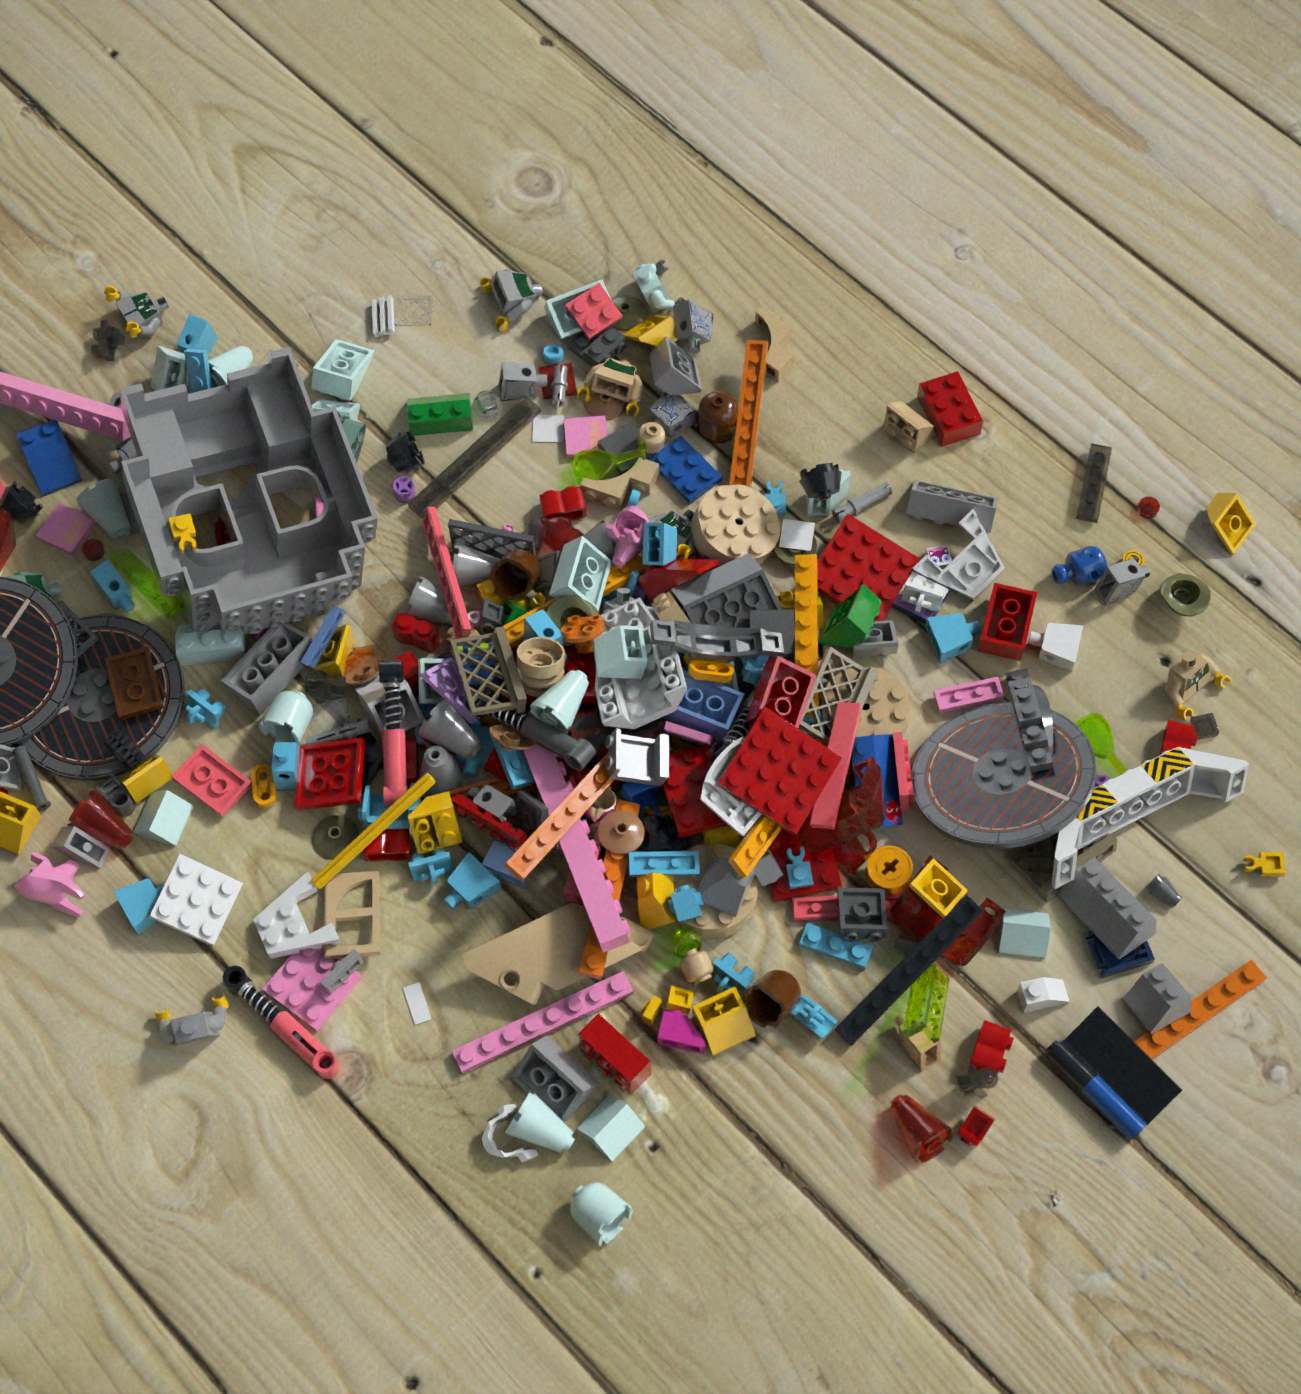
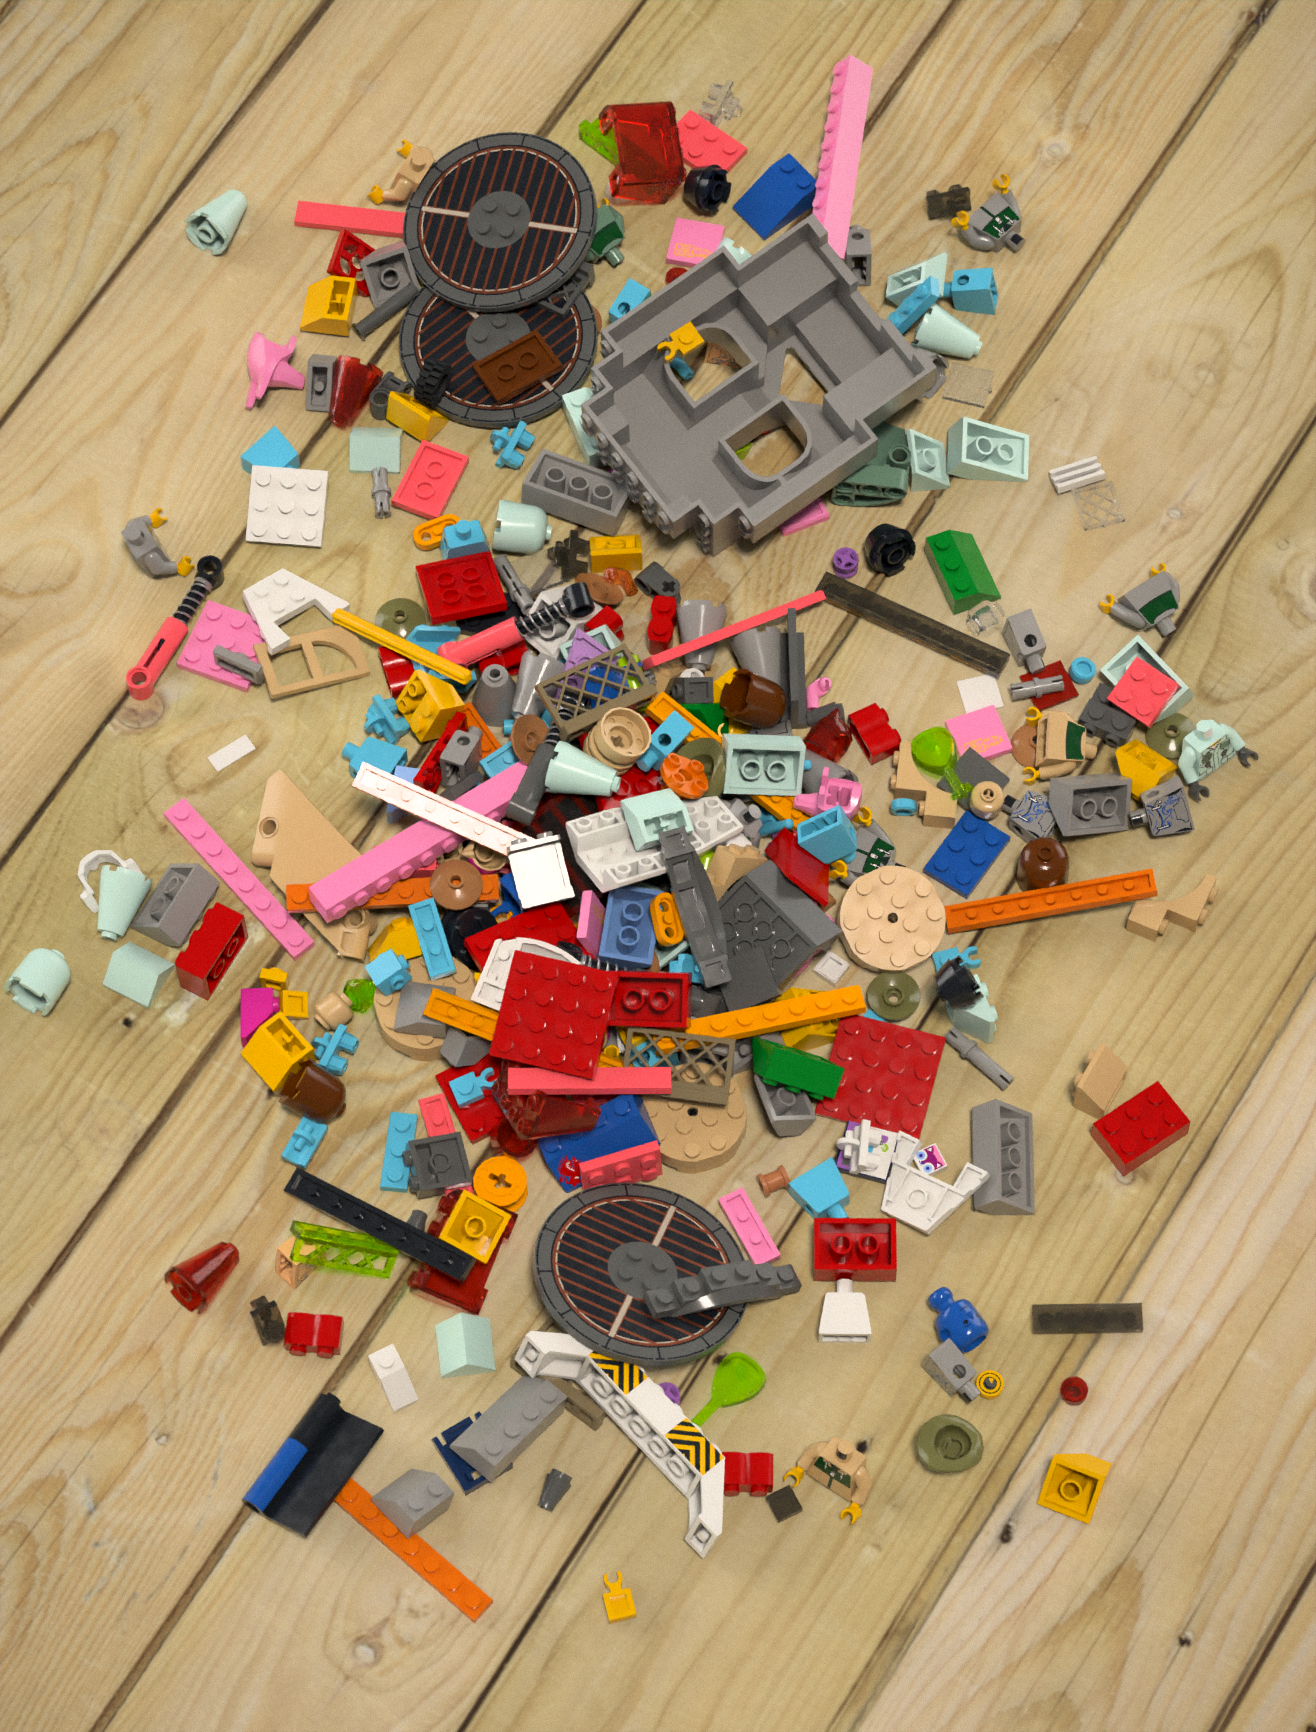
camera: 75 degrees right, 0 degrees up
(208, 823) = (381, 492): none -> light grey pin
(323, 636) = (623, 531): medium blue tile -> none
(374, 627) = (657, 581): none -> dark grey piece
(796, 534) = (907, 993): white sticker -> none
(932, 668) = (773, 1181): none -> nougat bush
(975, 1127) = (219, 1335): red bracket -> none

